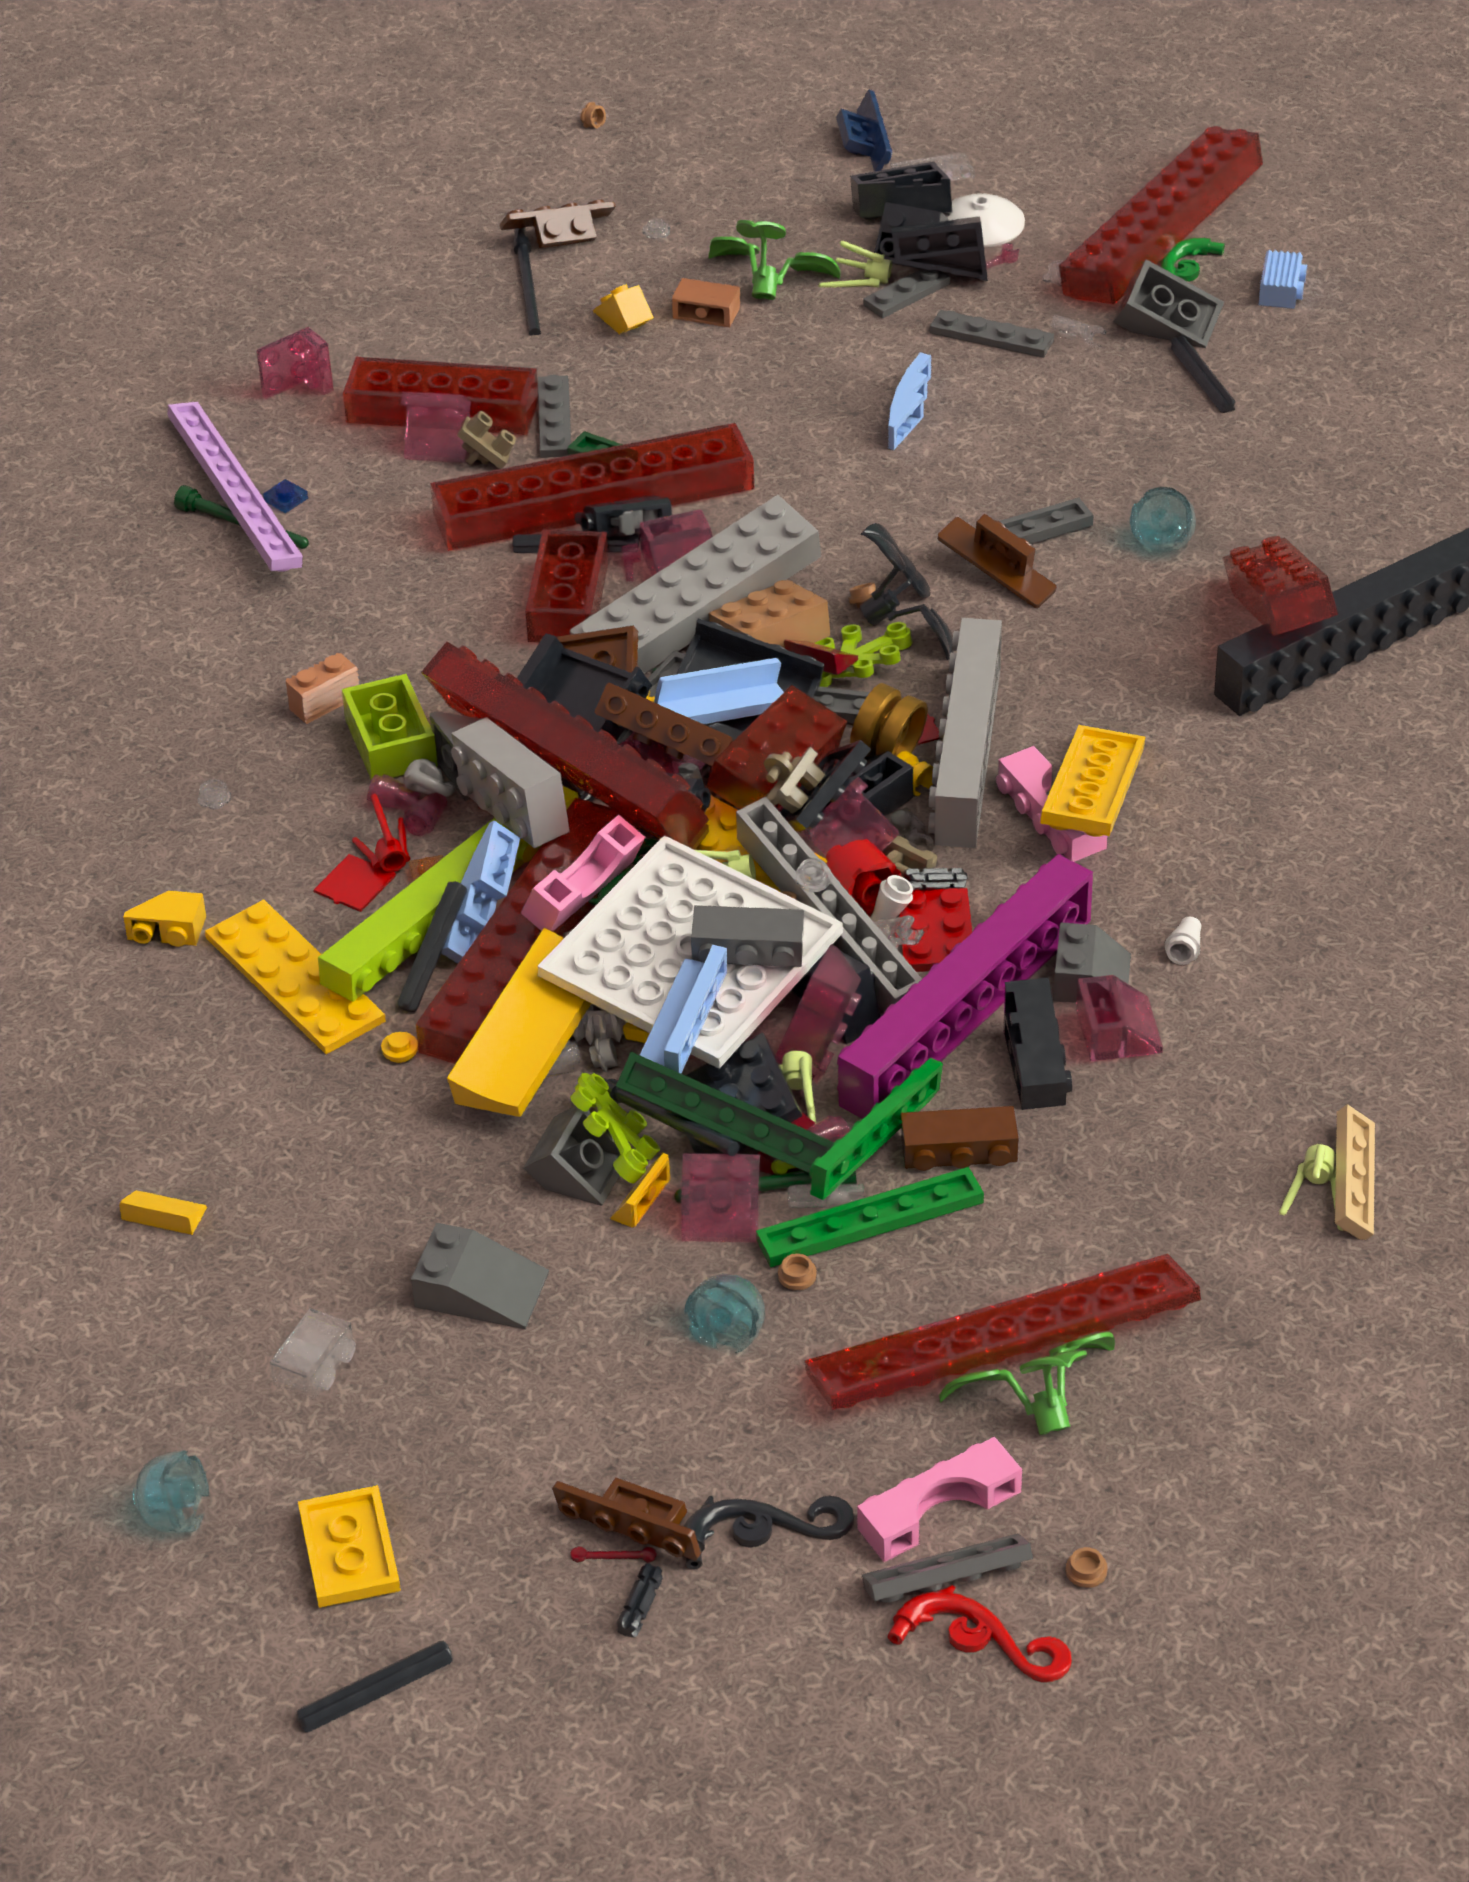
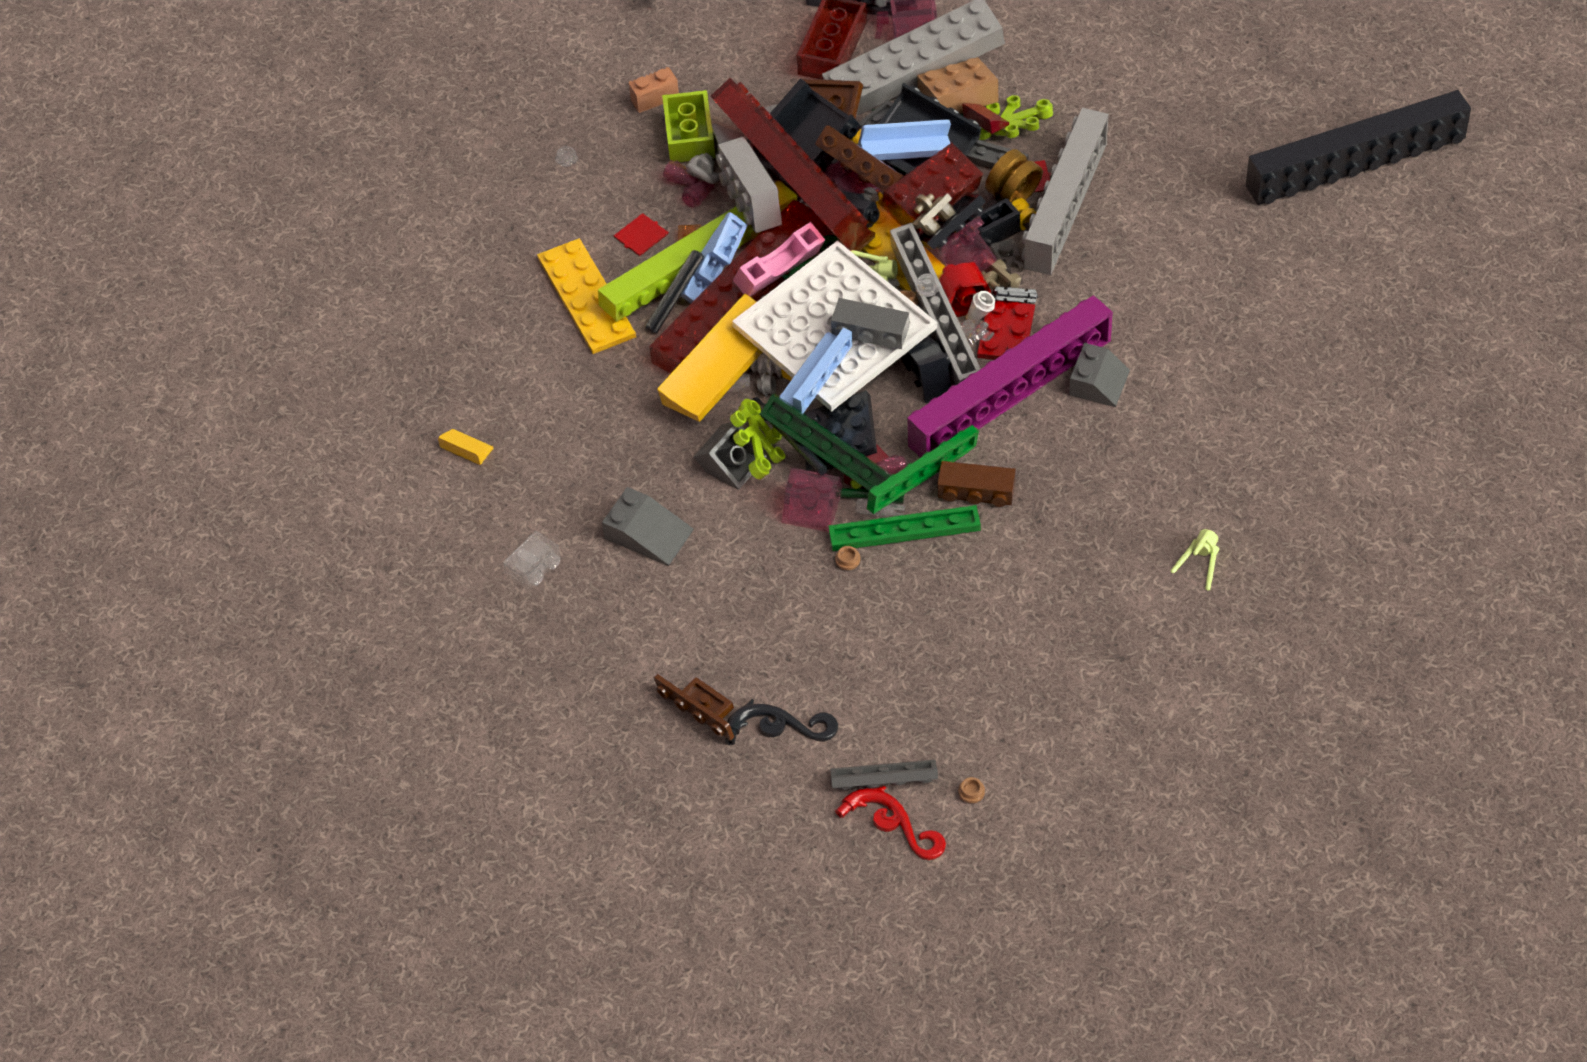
camera: 15 degrees right, 10 degrees up
(166, 1487) = (424, 633): clear light blue cylinder -> none
(176, 912) = (520, 239): yellow slope -> none
(348, 1546) = (523, 691): yellow plate -> none
(374, 1686) = (517, 784): black axle -> none
(389, 852) = (667, 218): red plant -> none
(399, 1047) = (639, 357): yellow plate -> none
(639, 1600) = (690, 759): black axle -> none
(643, 1193) = (766, 486): yellow slope -> none
(647, 1554) = (662, 722): dark red hinge -> none
(721, 1305) = (793, 573): clear light blue cylinder -> none
(798, 1073) = (884, 423): yellowish green plant -> none
(822, 1010) = (904, 385): clear pink slope -> none
(861, 593) = (1029, 74): medium nougat plate -> none
(884, 603) = (1039, 83): black plant -> none
(979, 1475) = (921, 716): bright pink arch -> none
(1000, 556) = (1127, 61): reddish brown bracket -> none
(1001, 1331) = (965, 622): clear red plate -> none
(1027, 780) = (1116, 273): bright pink arch -> none
(1035, 1045) = (1043, 427): black wedge -> none
(1049, 1404) = (977, 680): bright green plant -> none
(1050, 521) = (1156, 39): dark grey plate -> none
(1093, 781) = (1138, 241): yellow plate -> none
(1115, 1019) = (1104, 417): clear pink slope -> none
(1163, 520) = (1247, 49): clear light blue cylinder -> none
(1184, 941) = (1165, 369): white cone -> none
(1279, 585) = (1304, 116): clear red brick -> none
(1355, 1173) = (1226, 552): tan plate -> none

